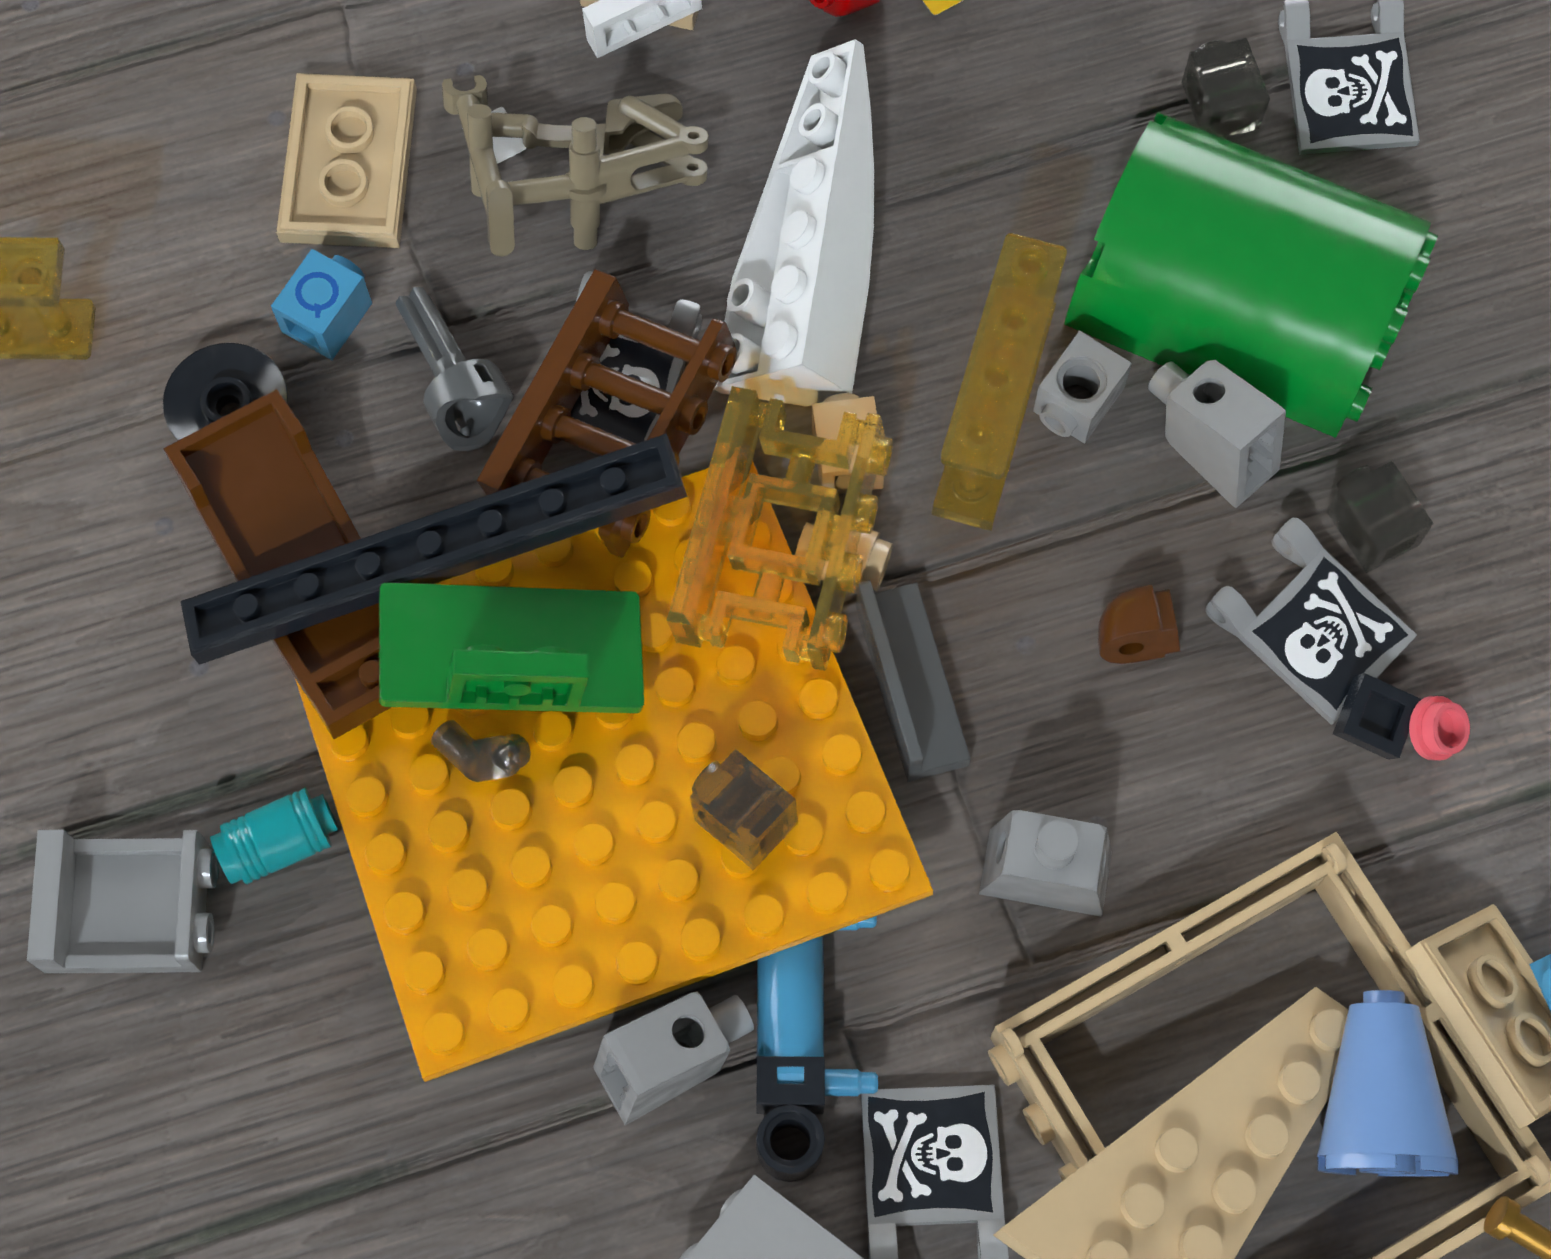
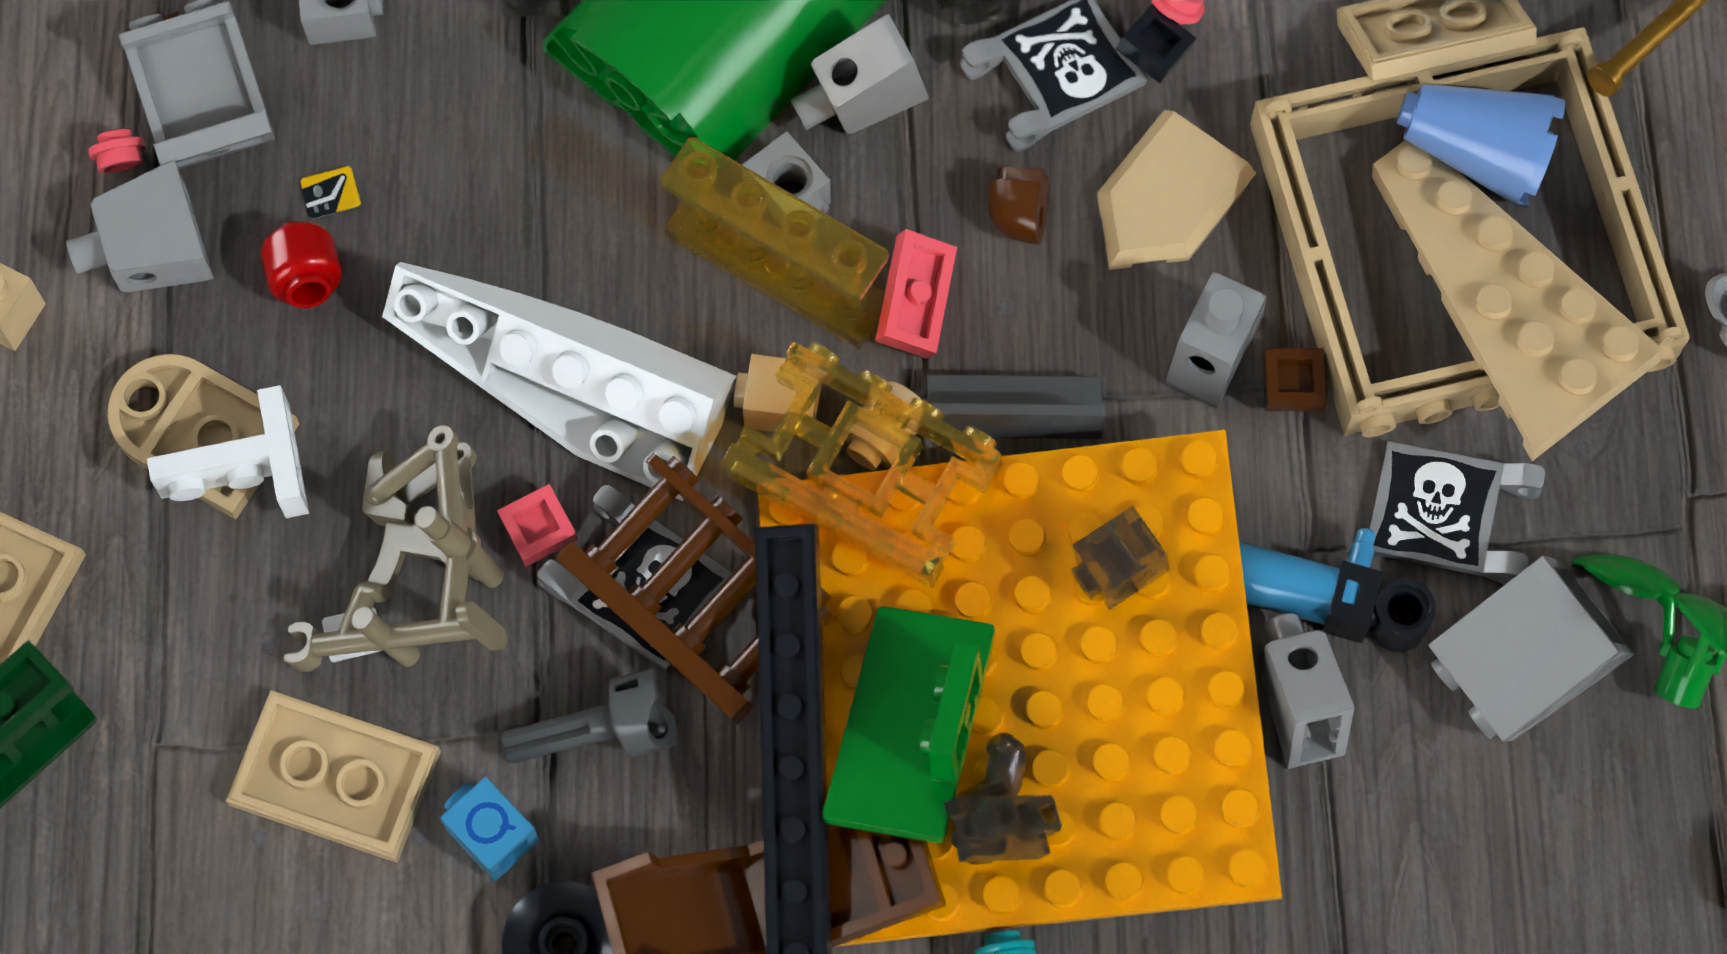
camera: 75 degrees left, 0 degrees up
(416, 761) = (1002, 827): none -> clear smoke hips
(643, 260) = (537, 525): none -> coral plate
(1002, 546) = (916, 294): none -> coral plate
(1030, 962) = (1294, 379): none -> reddish brown plate
(1207, 779) = (1169, 193): none -> tan tile

